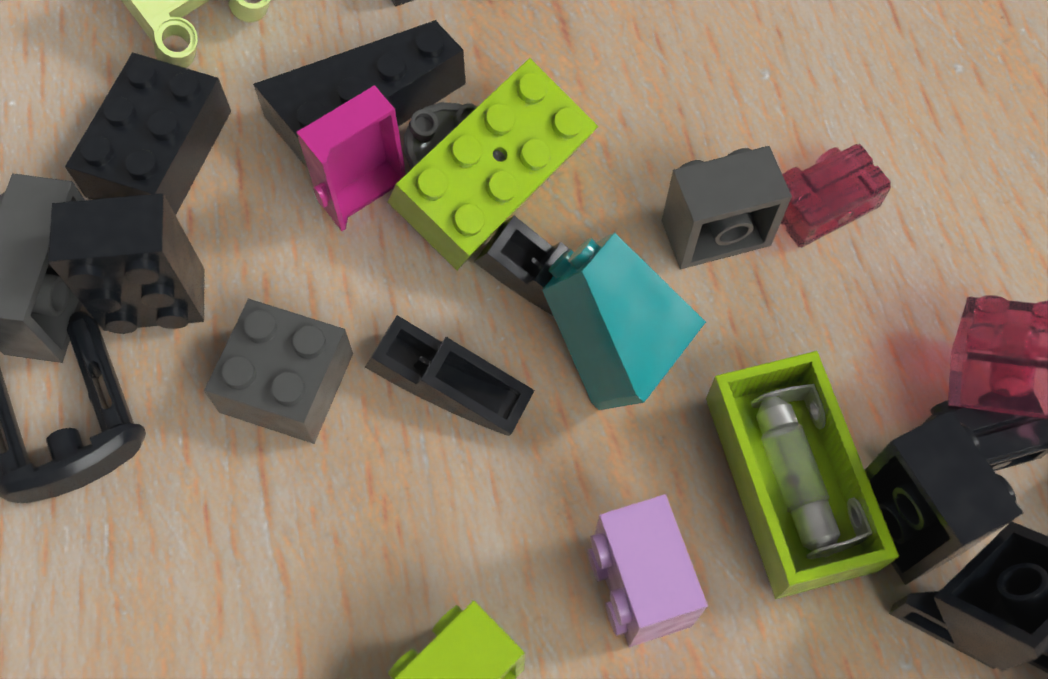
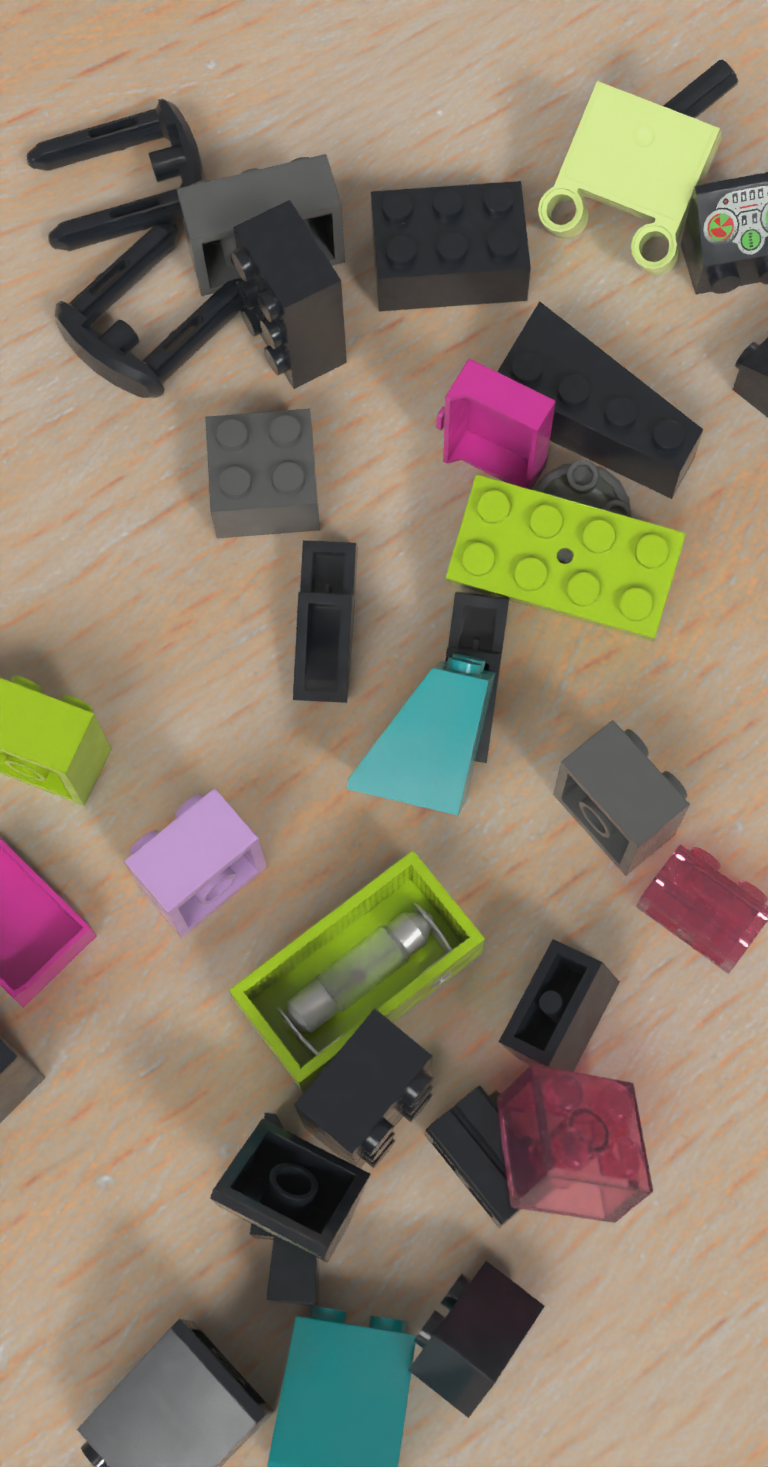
camera: 70 degrees right, 5 degrees up
(886, 327) = (559, 1008): none -> black brick

